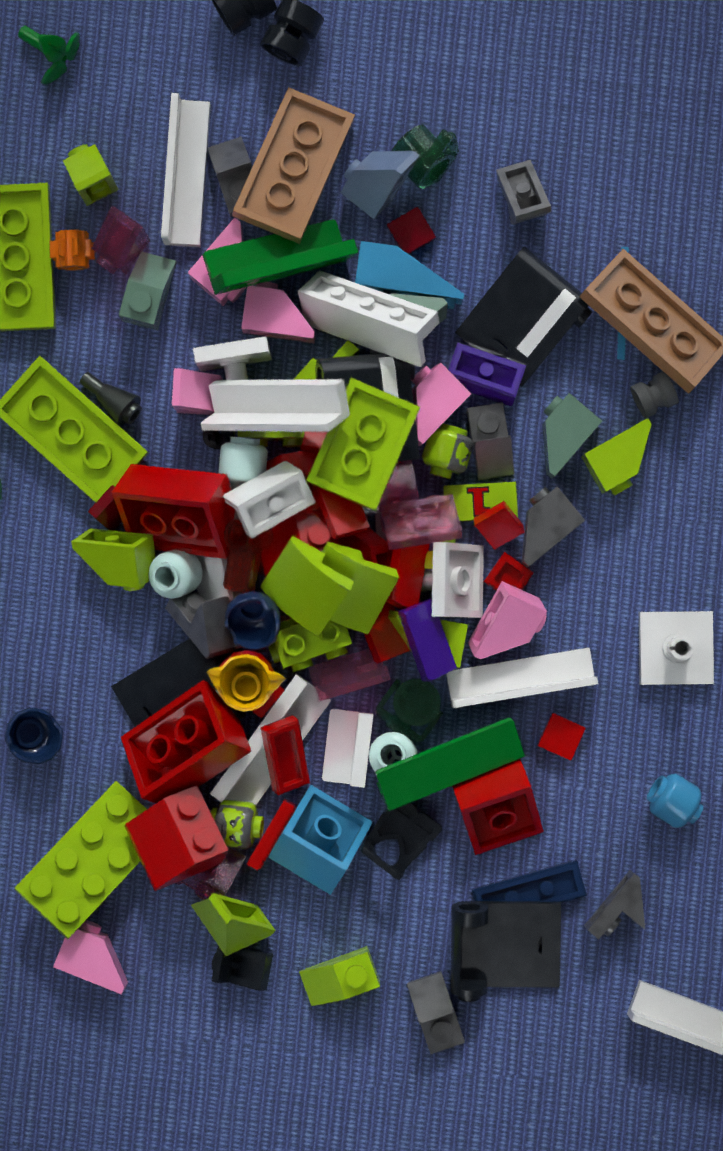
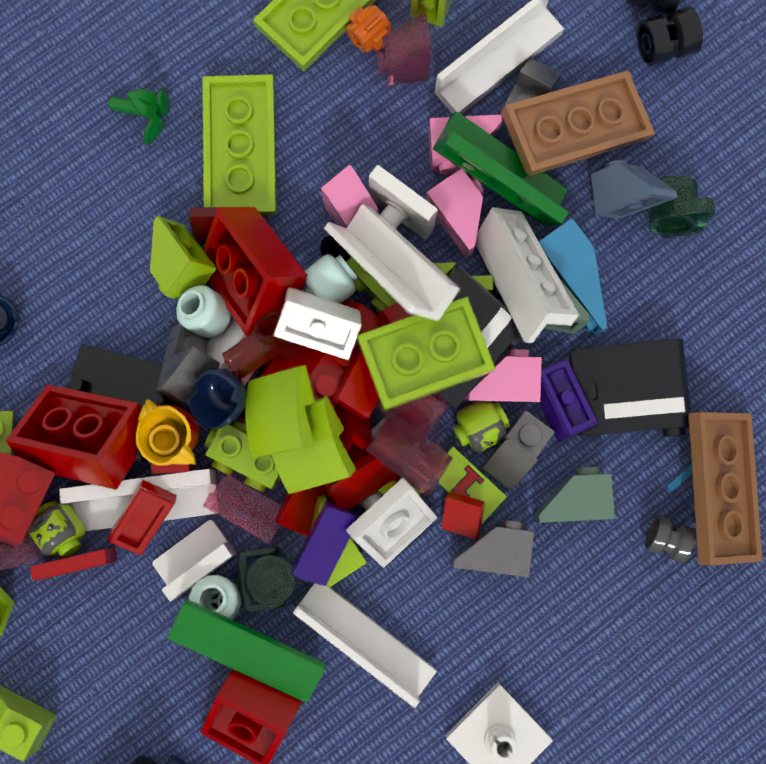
camera: 45 degrees right, 5 degrees down
(120, 404) = (291, 161): pearl dark grey cone -> none
(147, 291) = (388, 107): sand green slope -> none
(320, 839) = (103, 605): dark azure slope -> none
(410, 829) = (173, 667): black piece -> none
(411, 231) = (613, 250): dark red tile -> none
(507, 621) = (397, 591): bright pink slope -> none
(508, 571) = (431, 558): red tile -> none
(523, 192) = (719, 305): flat silver slope -> none
(561, 736) = (350, 714): red tile -> none
(618, 458) = (597, 558): lime slope -> none

